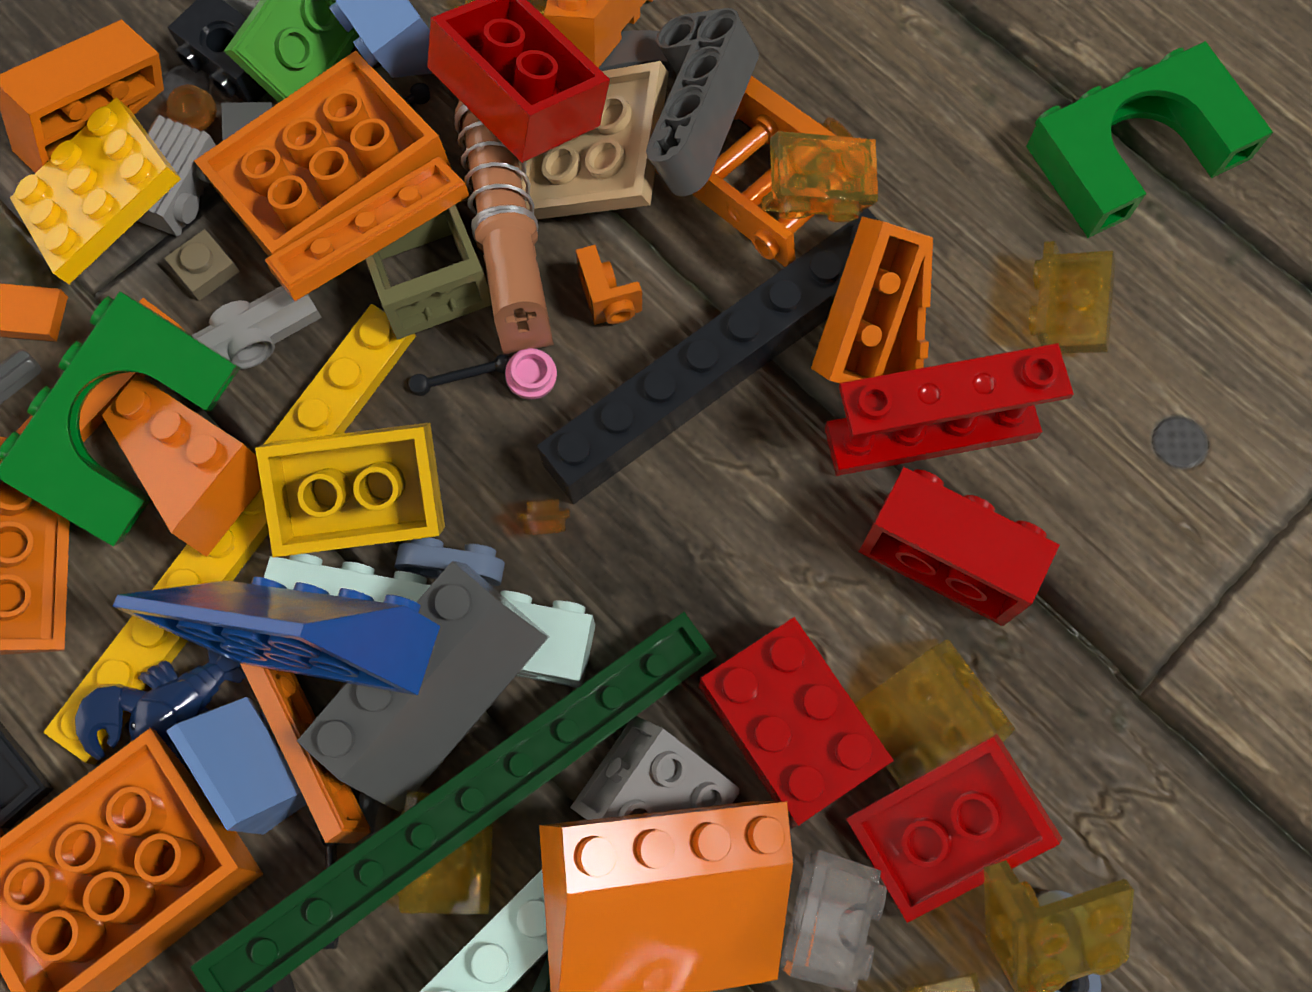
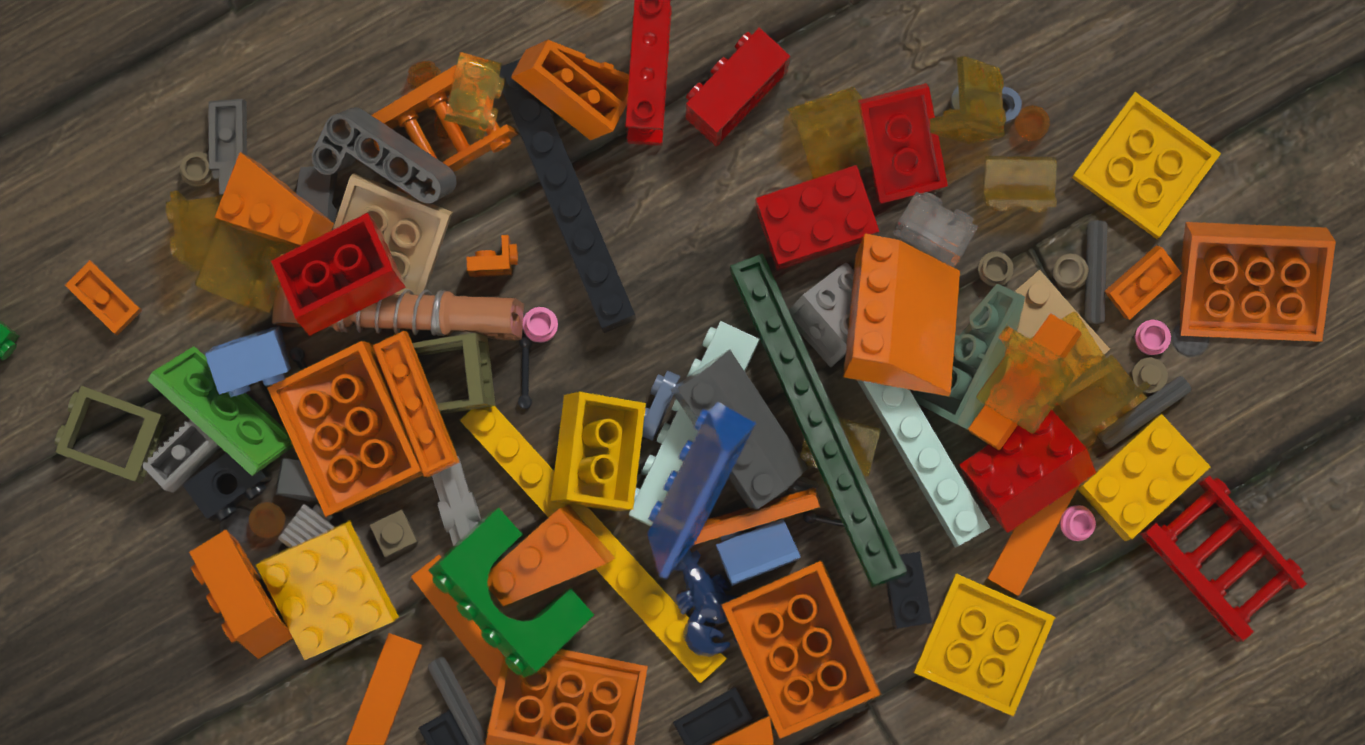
camera: 75 degrees left, 10 degrees up
(543, 517) = (643, 338): clear orange plate -> none

